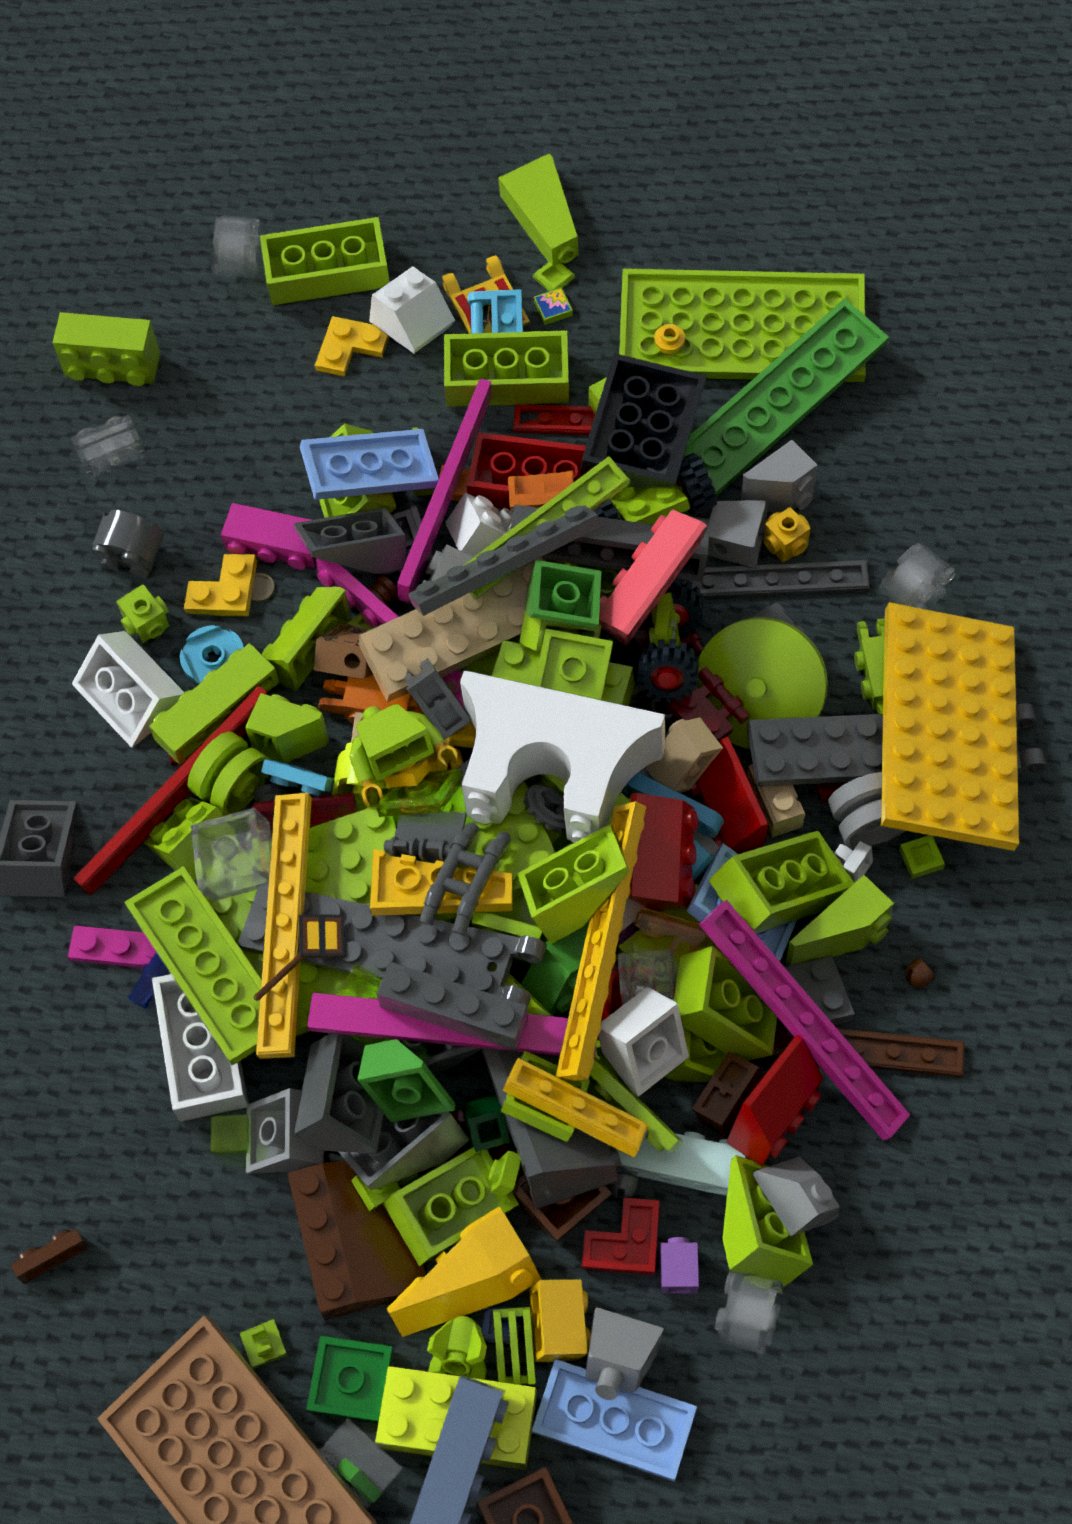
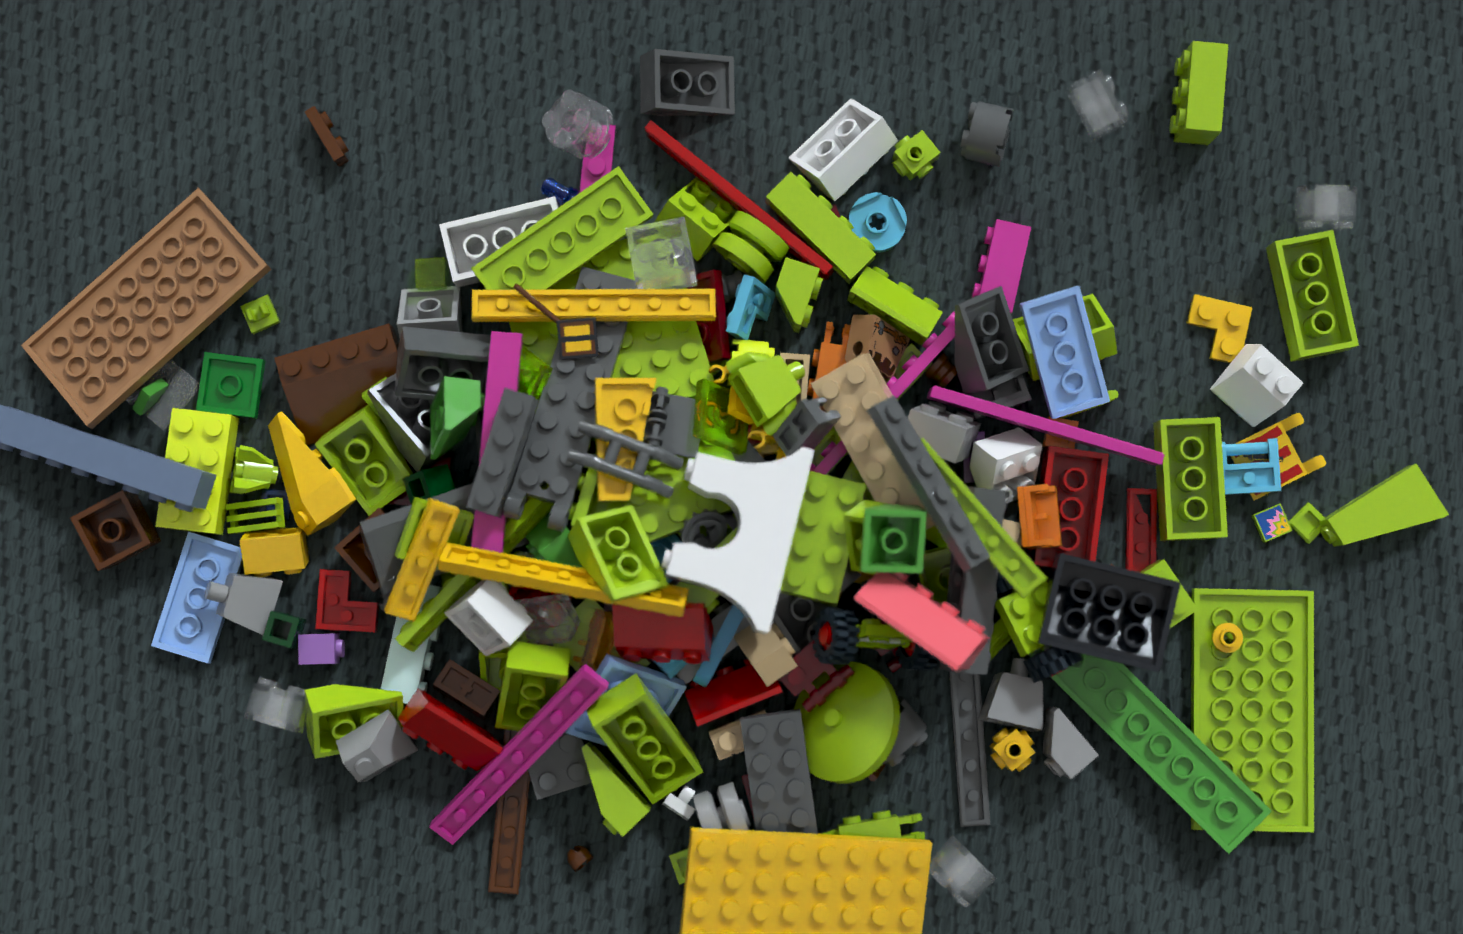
camera: 85 degrees right, 20 degrees up
(70, 956) = (578, 125): none -> clear brick
(228, 596) = (944, 234): yellow plate -> none
(263, 587) = (952, 258): dark tan piece -> none
(504, 1173) = (385, 502): lime plate -> none
(574, 664) = (823, 549): lime plate -> none
(656, 1304) = (283, 629): none -> dark green brick

